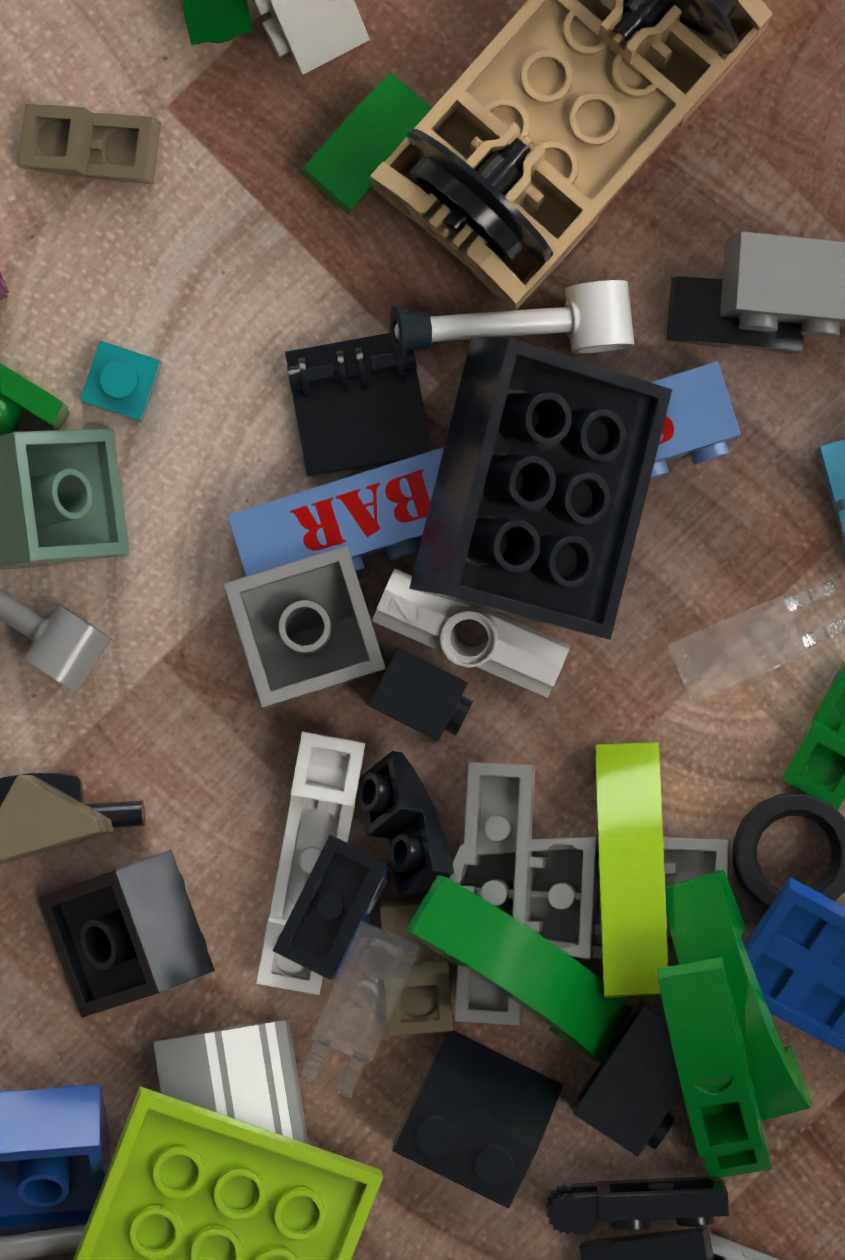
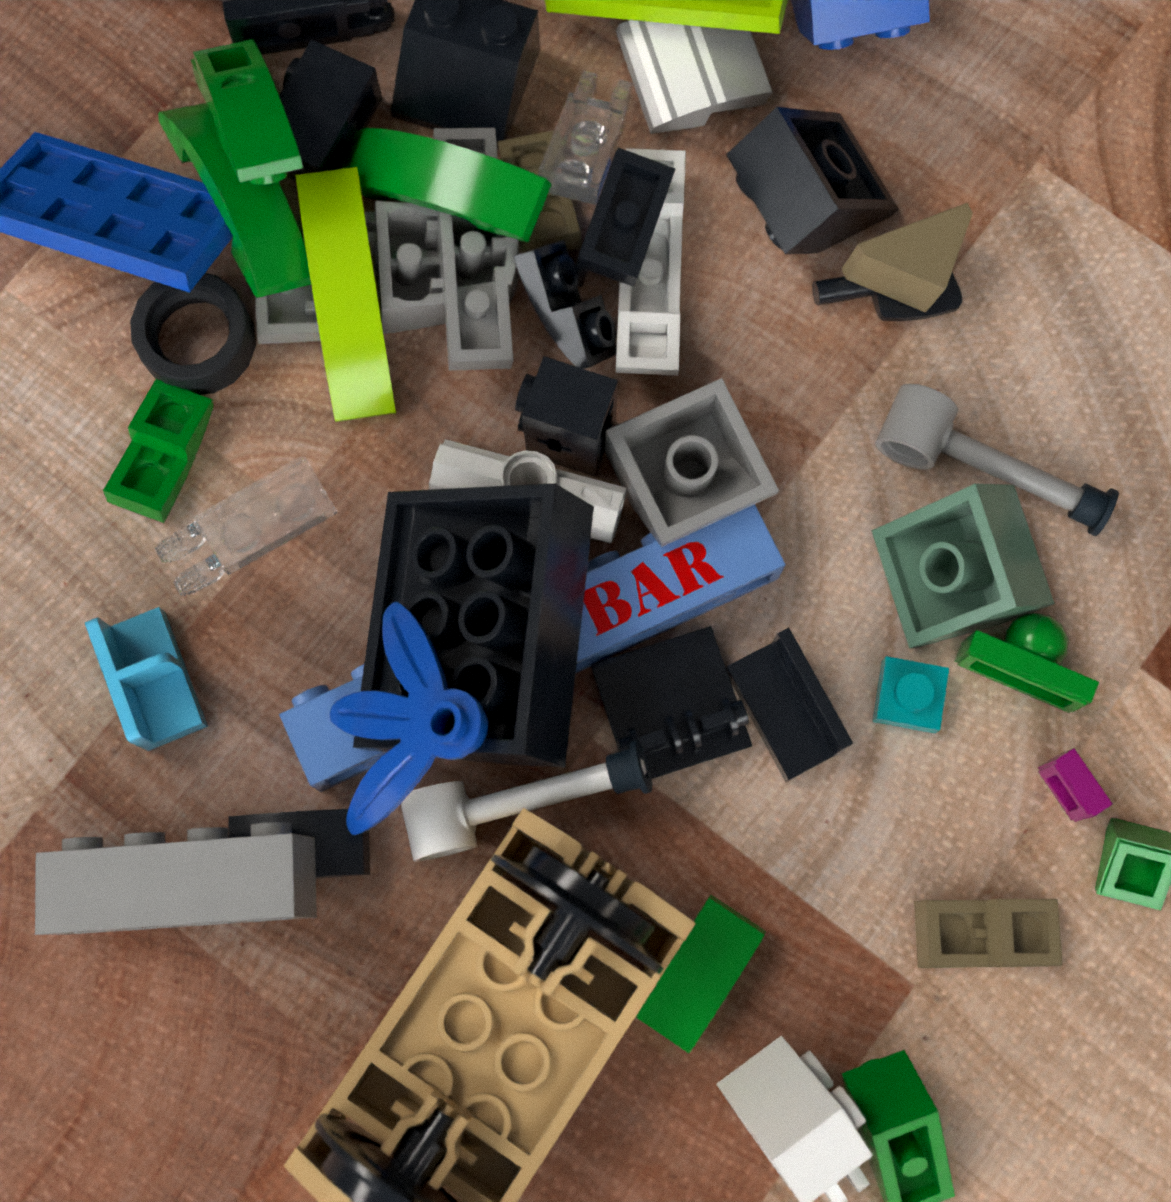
camera: 170 degrees right, 10 degrees down
(246, 383) = (788, 706): none -> black panel
(607, 392) = (414, 720): none -> blue plant

